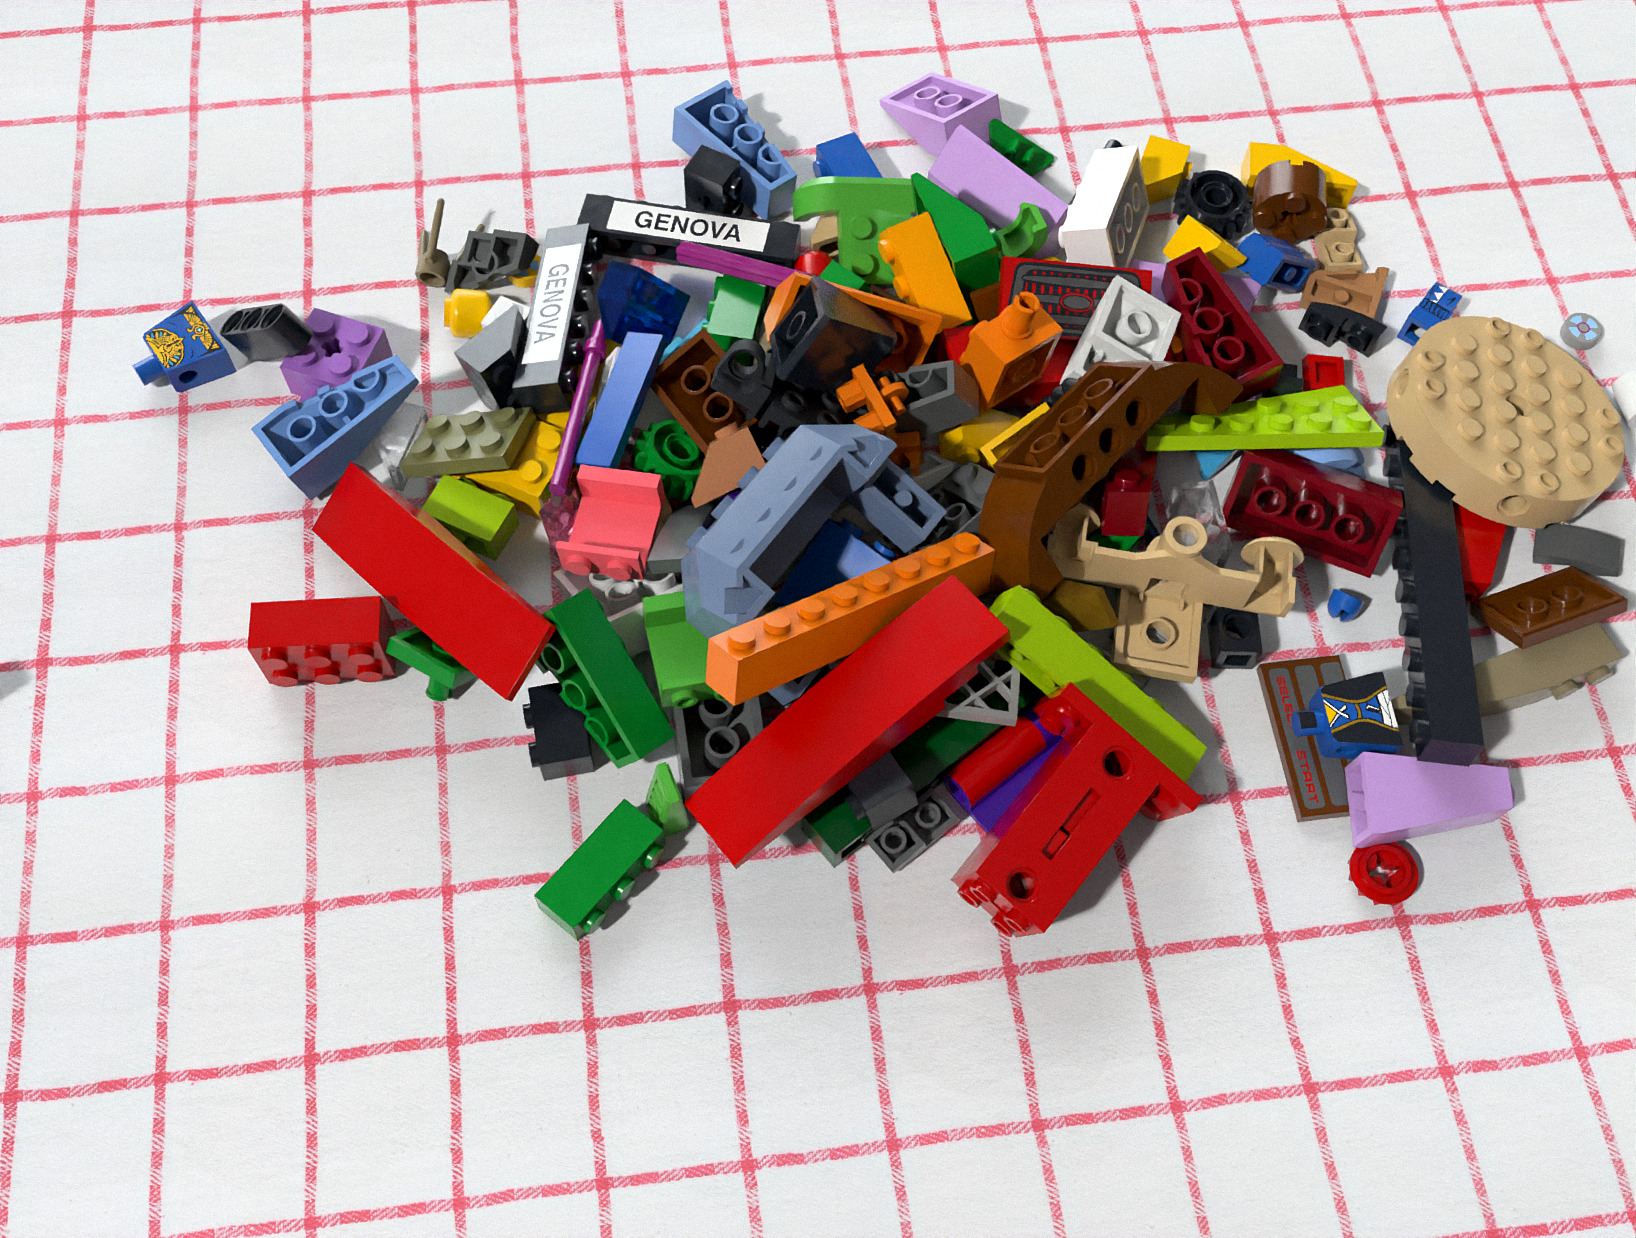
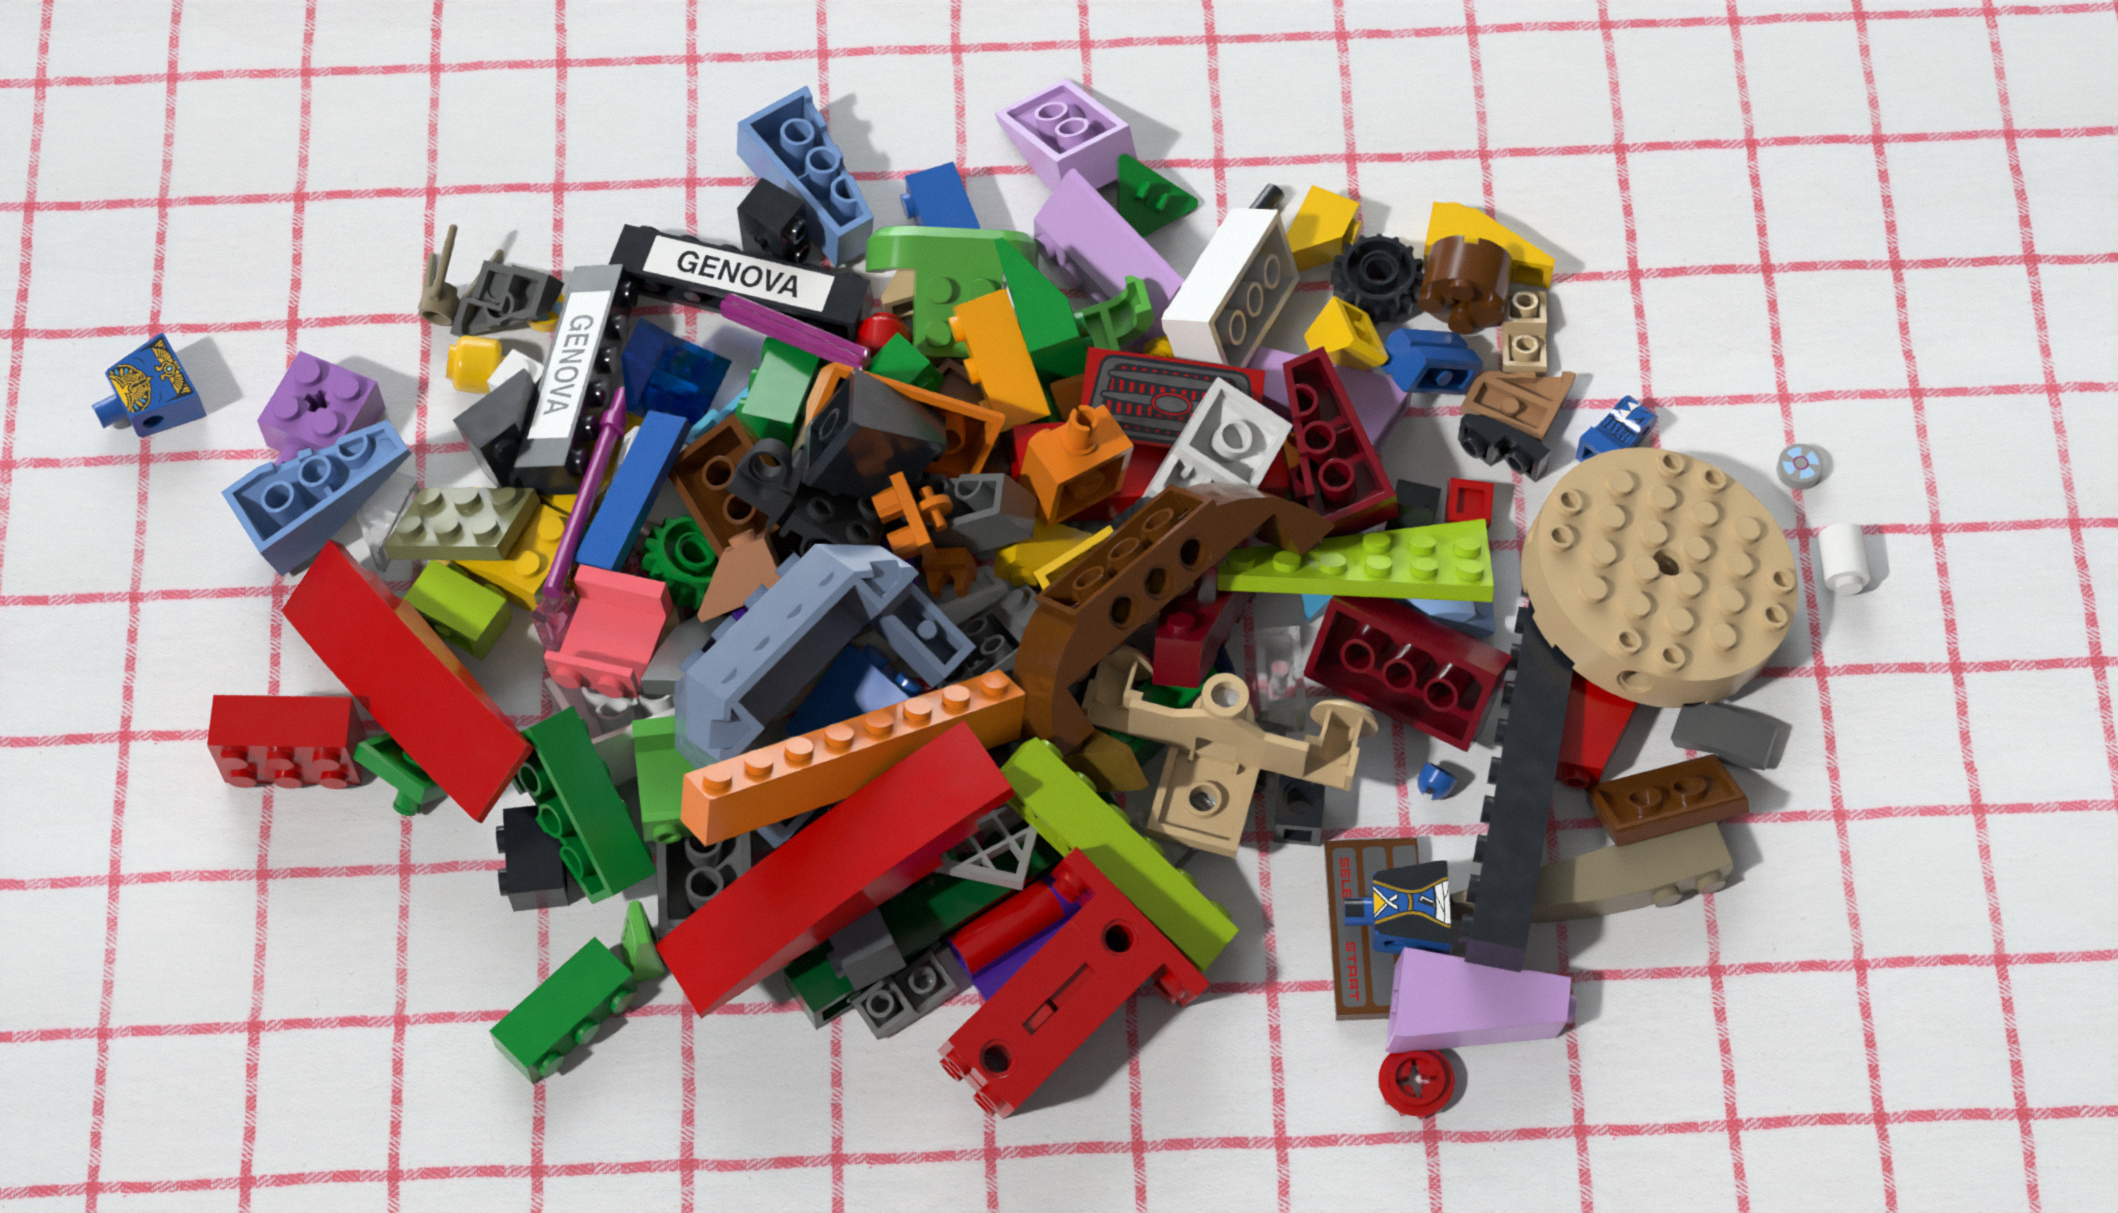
camera: 10 degrees right, 0 degrees up
(266, 332) = (244, 378): black beam -> none

